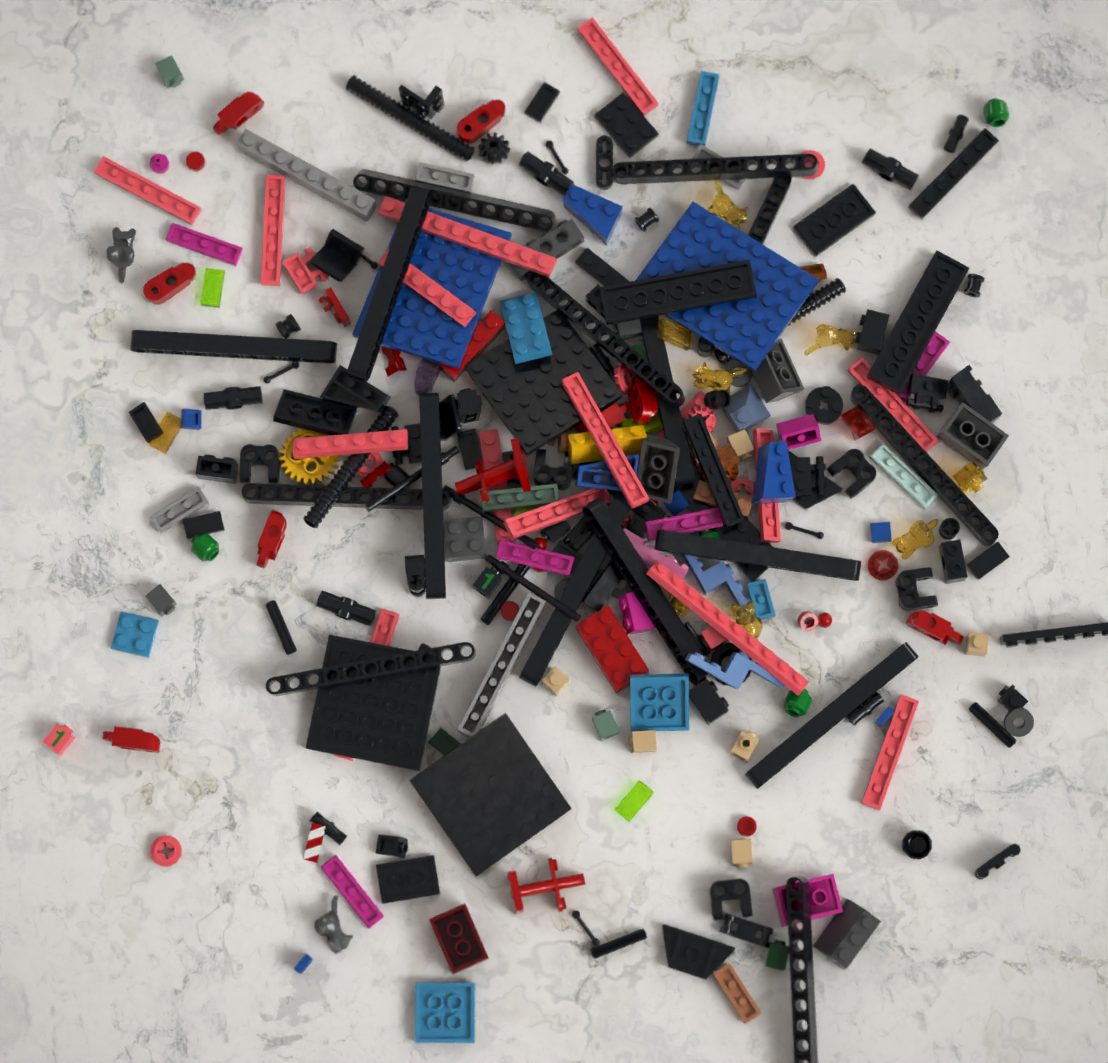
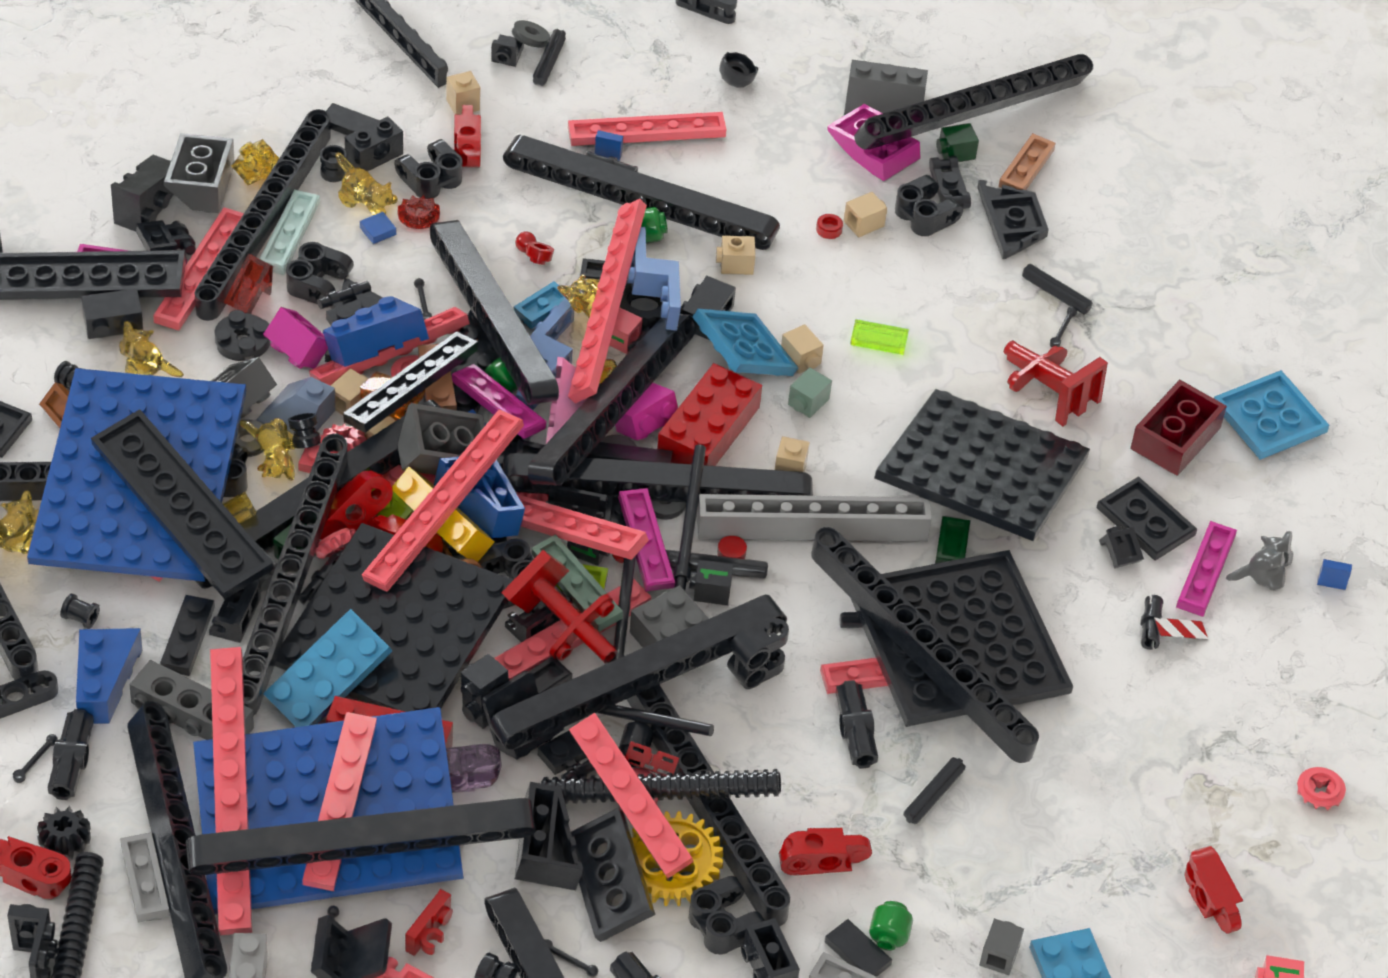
camera: 125 degrees left, 30 degrees down
(779, 648) = (592, 268): none -> black tile

